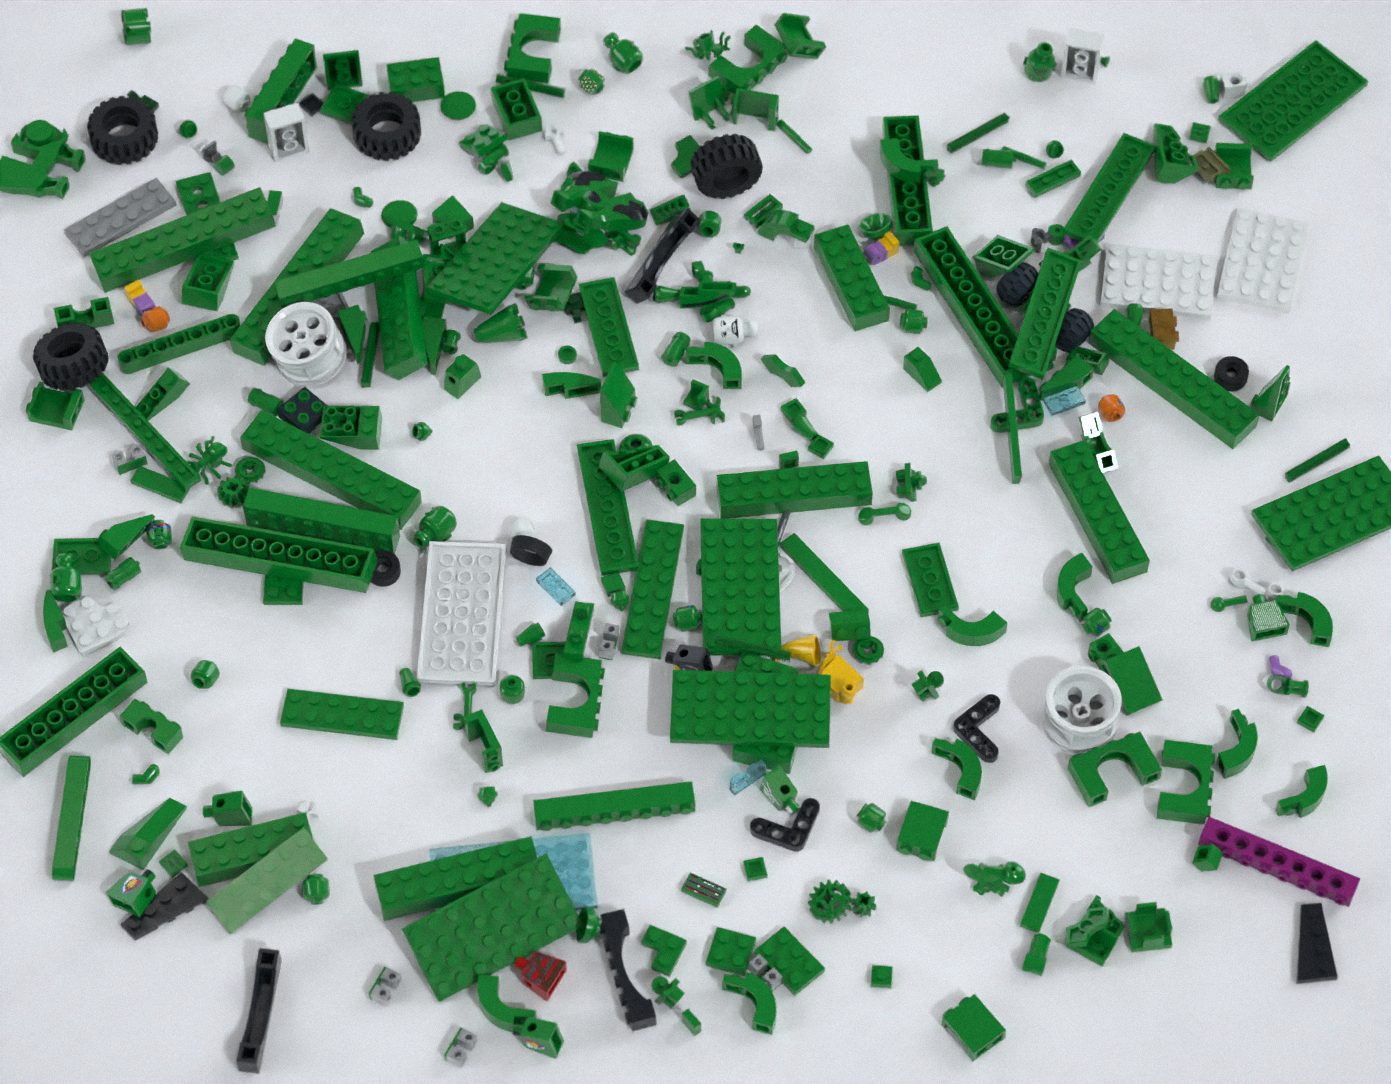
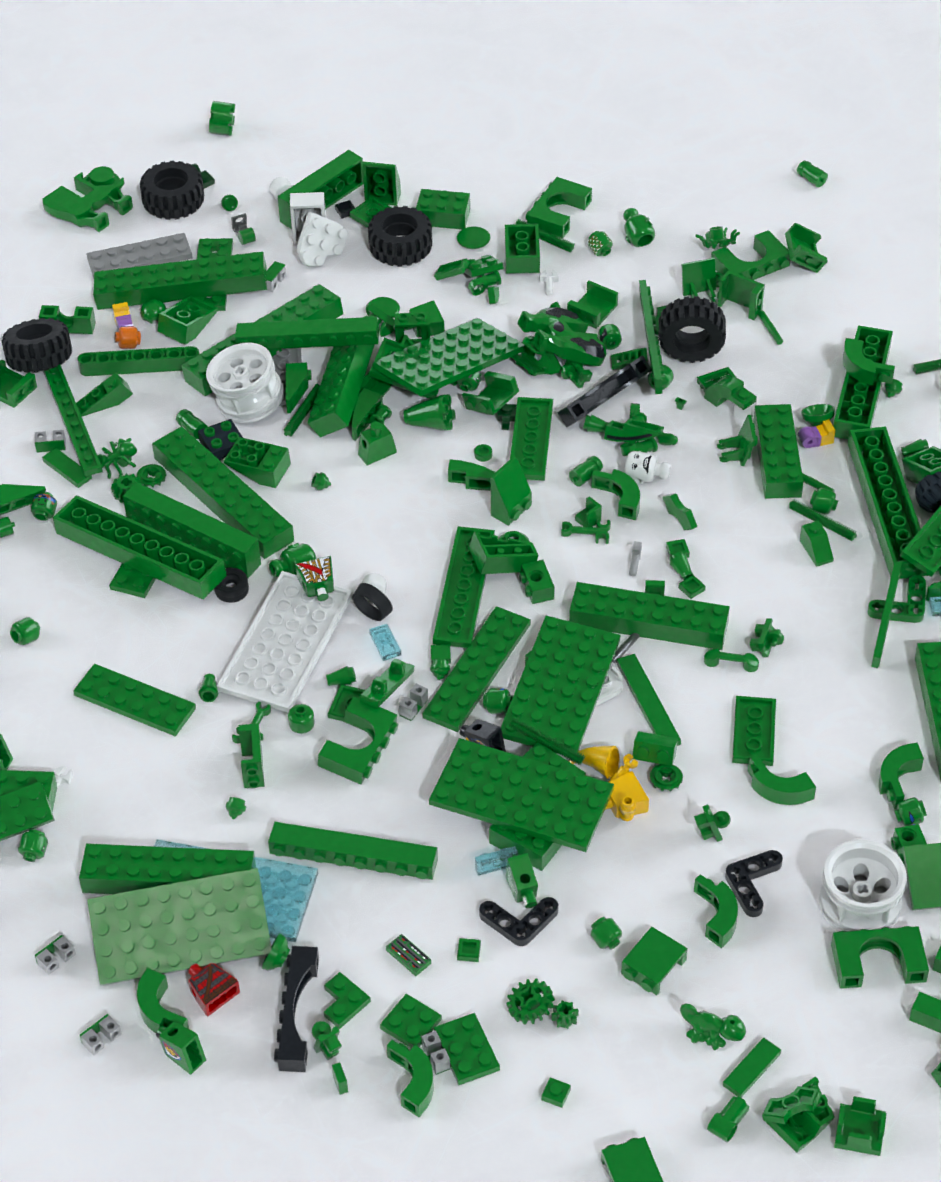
camera: 20 degrees right, 10 degrees down
(166, 280) = (151, 309): none -> green hair
(307, 152) = (319, 239): none -> white plate
(361, 200) = (353, 288): green arm -> none
(454, 152) = (451, 269): none -> green tile
(469, 541) = (316, 577): none -> torso
(642, 189) = (610, 336): none -> green head
(688, 185) = (652, 337): none -> green plate
(818, 275) = (744, 441): none -> green plate
(918, 280) = (842, 468): green arm -> none
(928, 344) = (835, 527): none -> green axle
(979, 239) = (914, 447): none -> green cone

